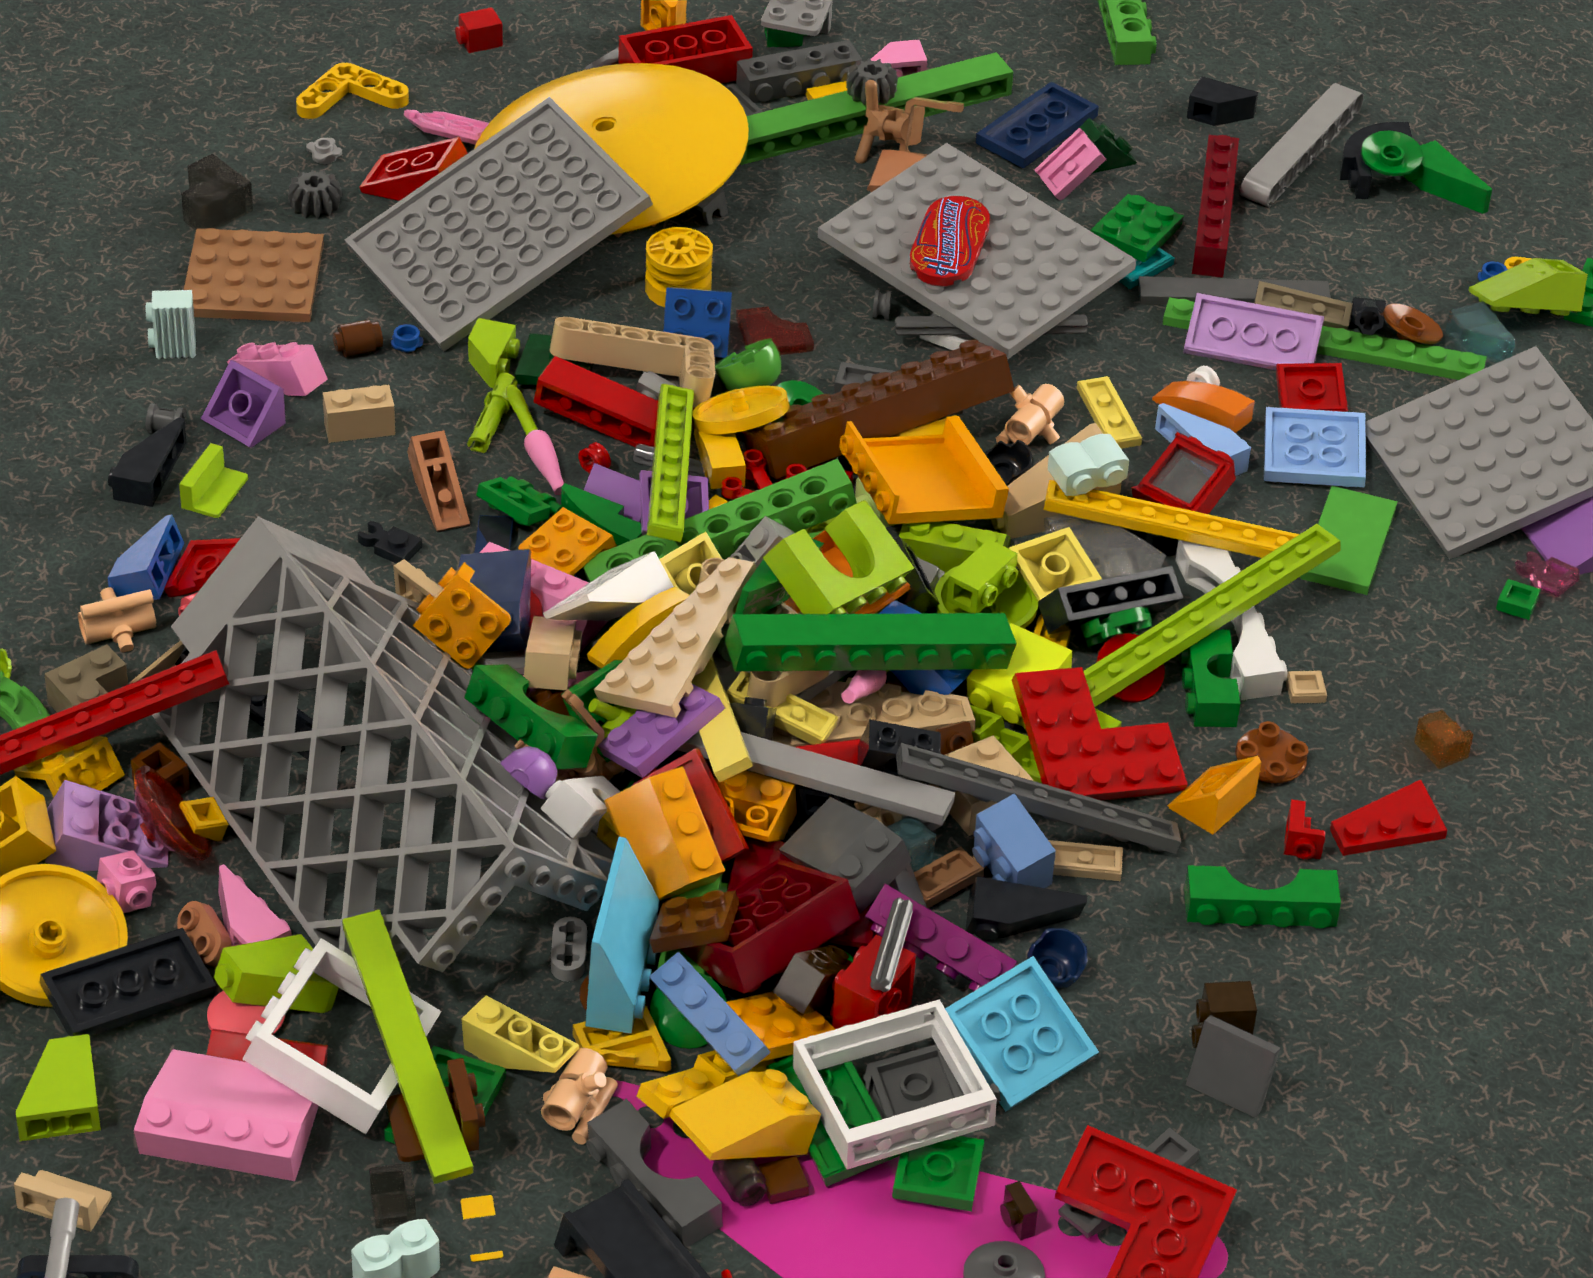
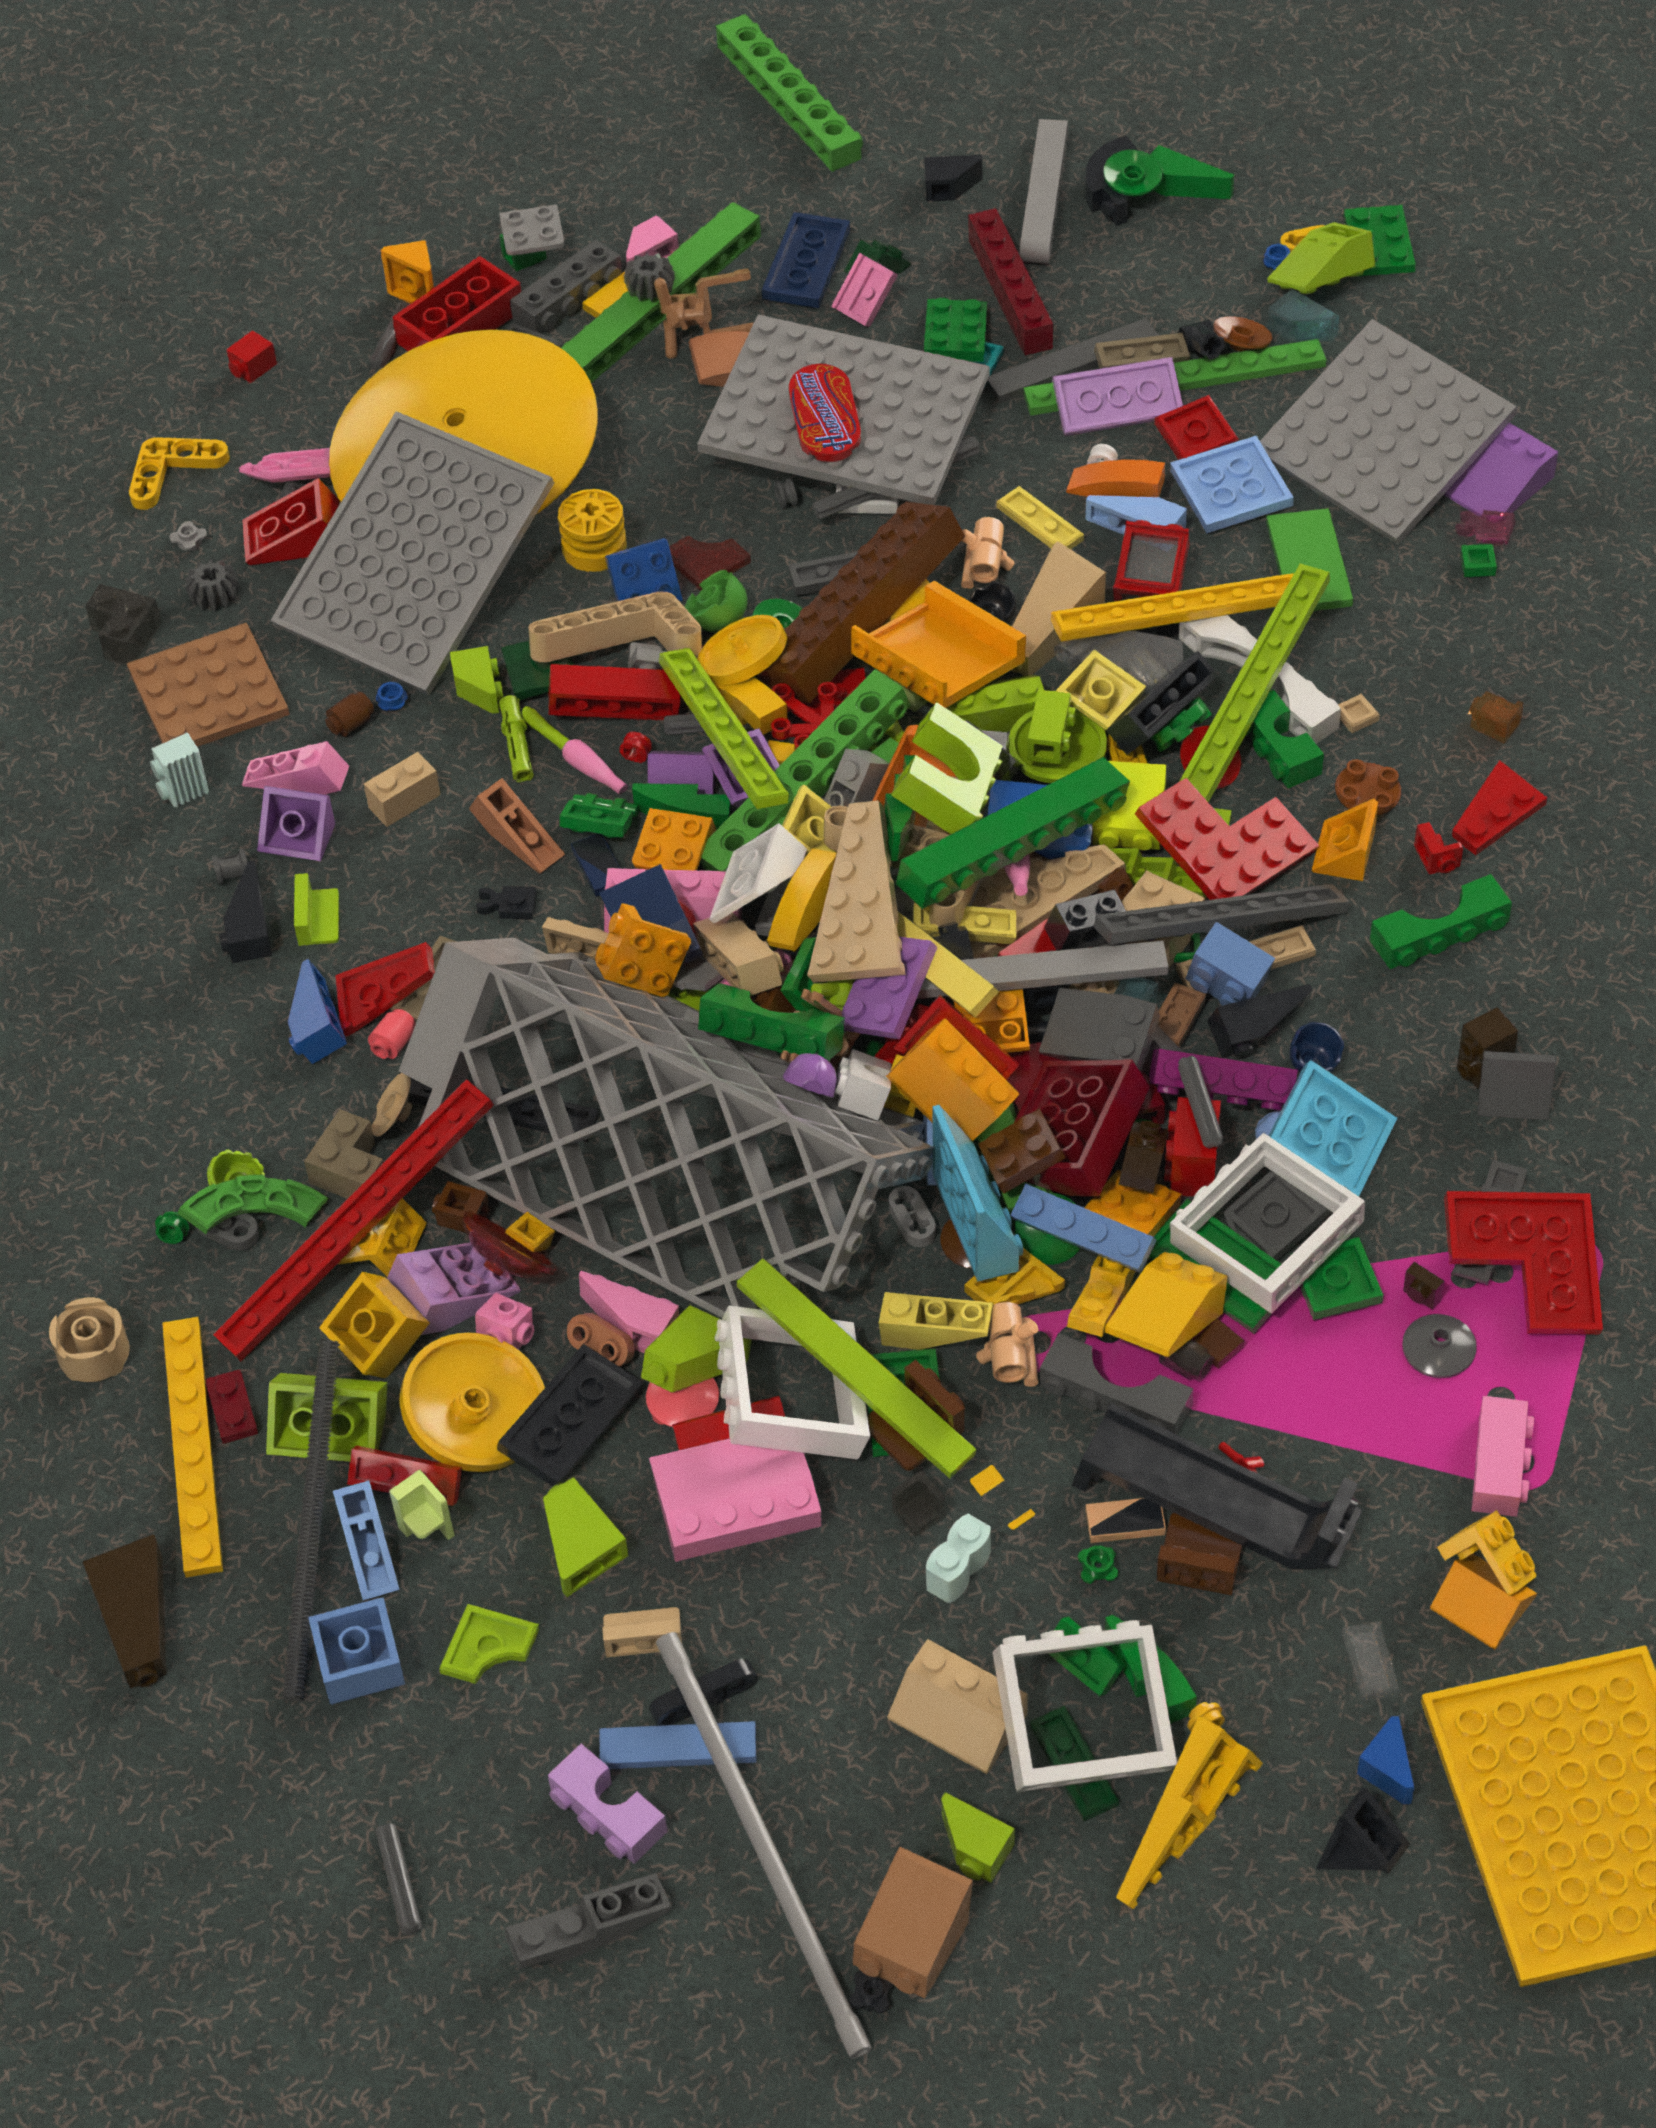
camera: 20 degrees left, 10 degrees up
(117, 617) = (322, 1078): light nougat pin -> none
(1088, 464) = (1081, 586): light aqua brick -> none

